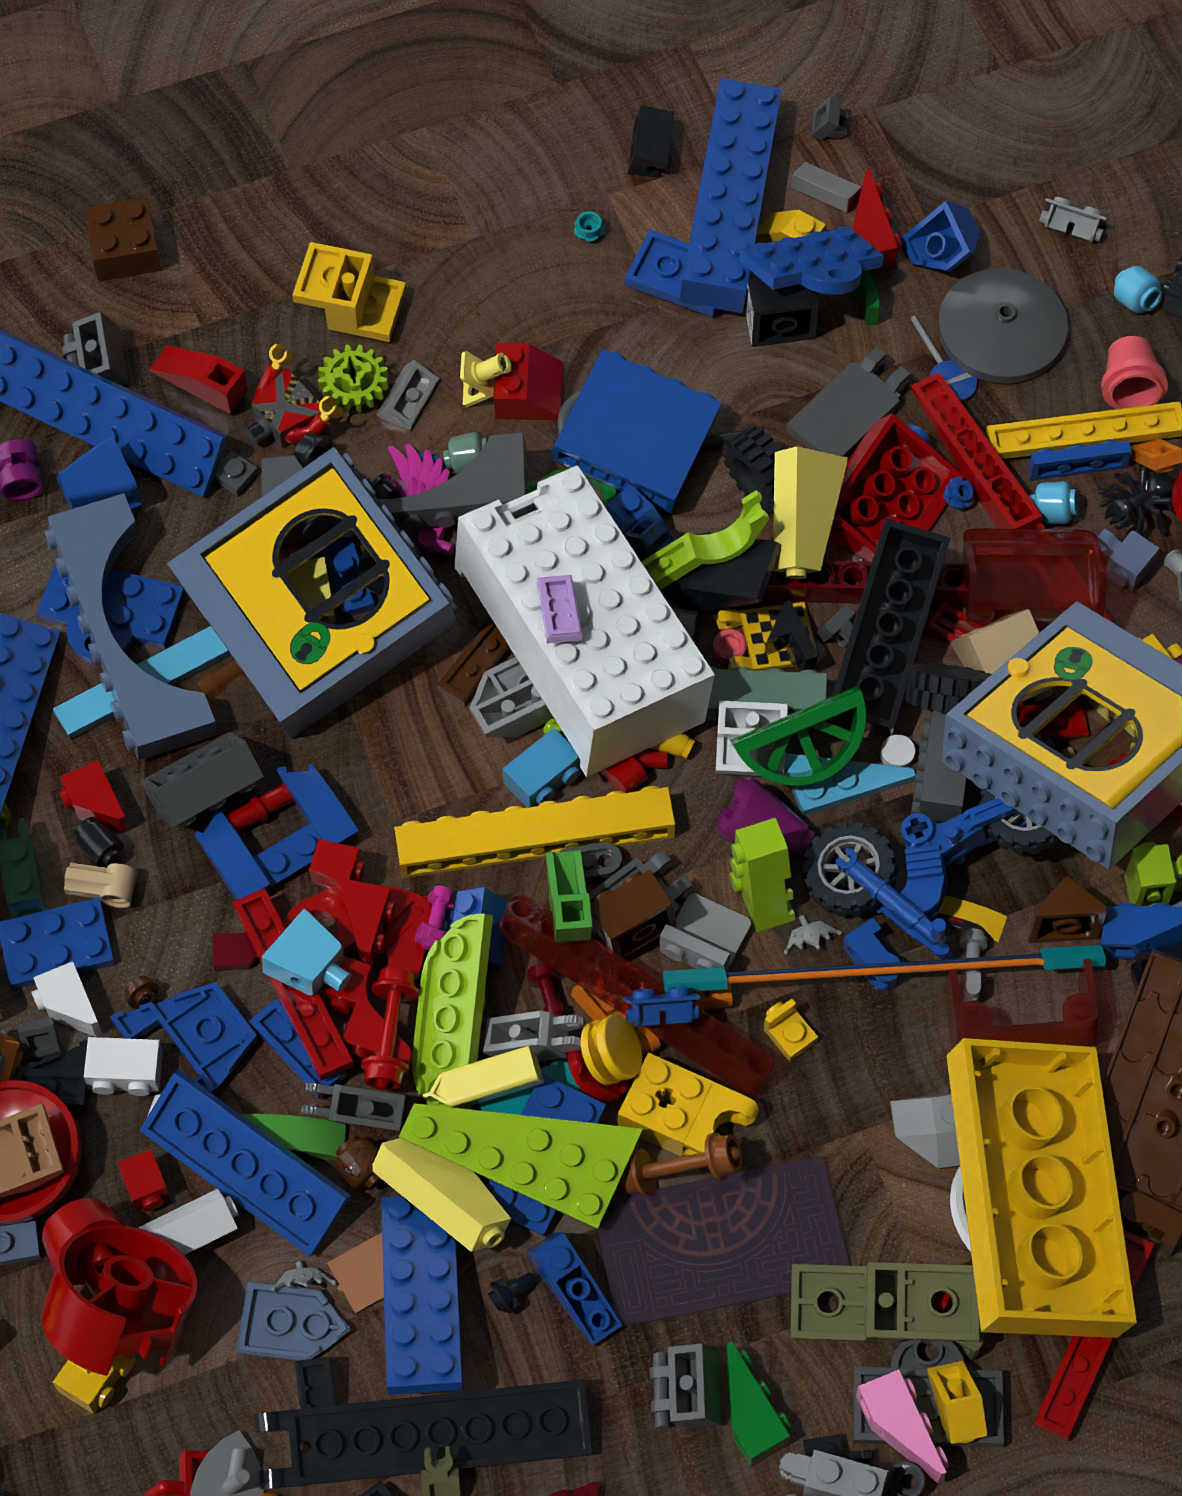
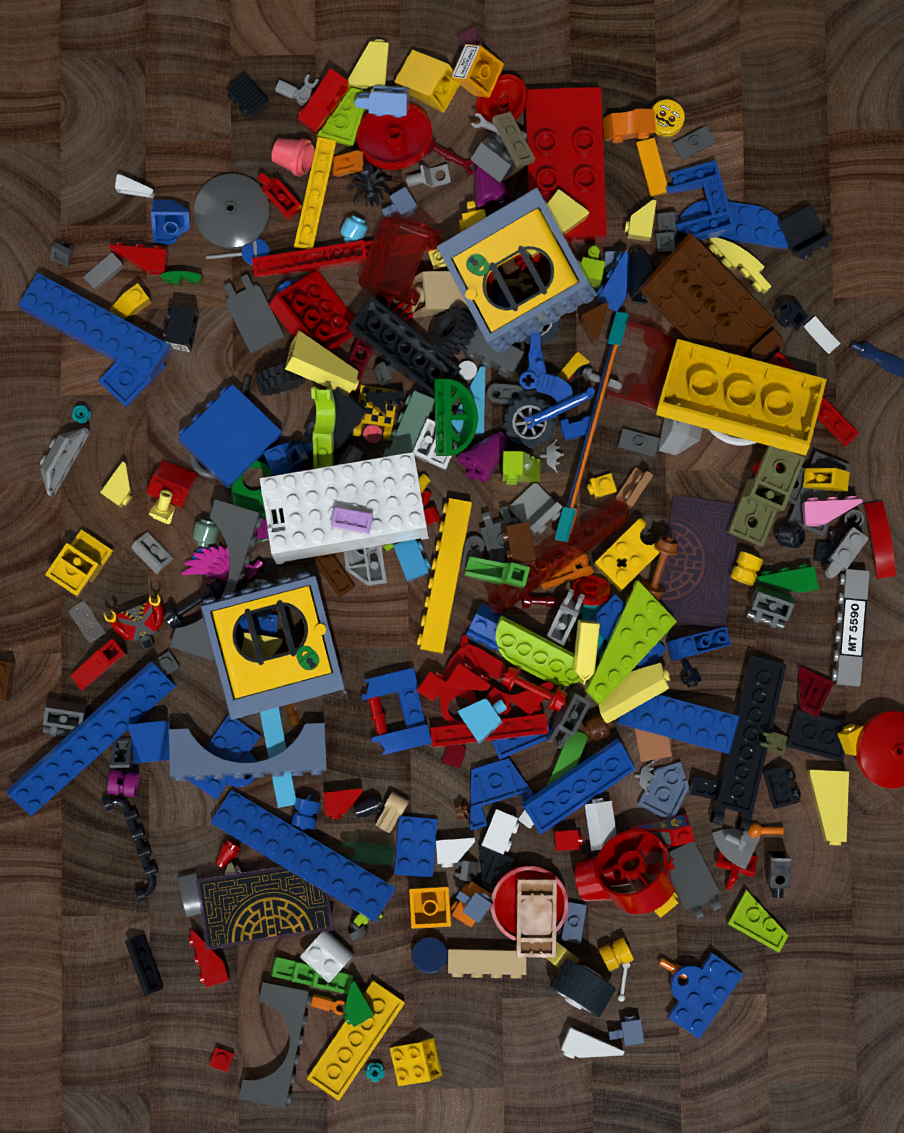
camera: 70 degrees left, 20 degrees up
(55, 750) = (305, 816): none -> blue wheel
(59, 451) = (122, 753): none -> dark grey slope
(143, 1423) = (693, 879): none -> dark grey tile
(202, 780) = (356, 740): dark grey brick -> none
(215, 1346) = (671, 830): none -> slope
(254, 346) = (86, 621): none -> clear slope
(368, 371) = (133, 570): lime gear -> none
(441, 899) = (488, 649): dark pink bar -> none
(495, 312) = (119, 486): none -> light yellow slope
(504, 221) = (61, 458): none -> light grey wedge
(611, 1049) = (589, 580): yellow head -> none
(650, 141) = (38, 359): black hinge -> none
(675, 1003) = (577, 538): blue hinge -> none
(740, 1321) = (746, 568): none -> yellow wheel
(806, 1083) = (633, 487): none -> medium nougat bracket
(819, 261) = (166, 300): blue plate -> none
(829, 1378) = (790, 535): none -> black head
(888, 822) = (505, 393): none -> dark grey plate
(890, 1066) = (638, 442): none -> dark grey plate
(952, 495) = (325, 280): blue plate -> none
(973, 171) = (131, 187): none -> white slope
(1054, 379) = (280, 197): none -> red hinge
(1062, 213) = (174, 150): light grey hinge -> none
(1079, 460) = (331, 205): blue plate -> none
(1137, 289) = (239, 129): medium azure head -> none

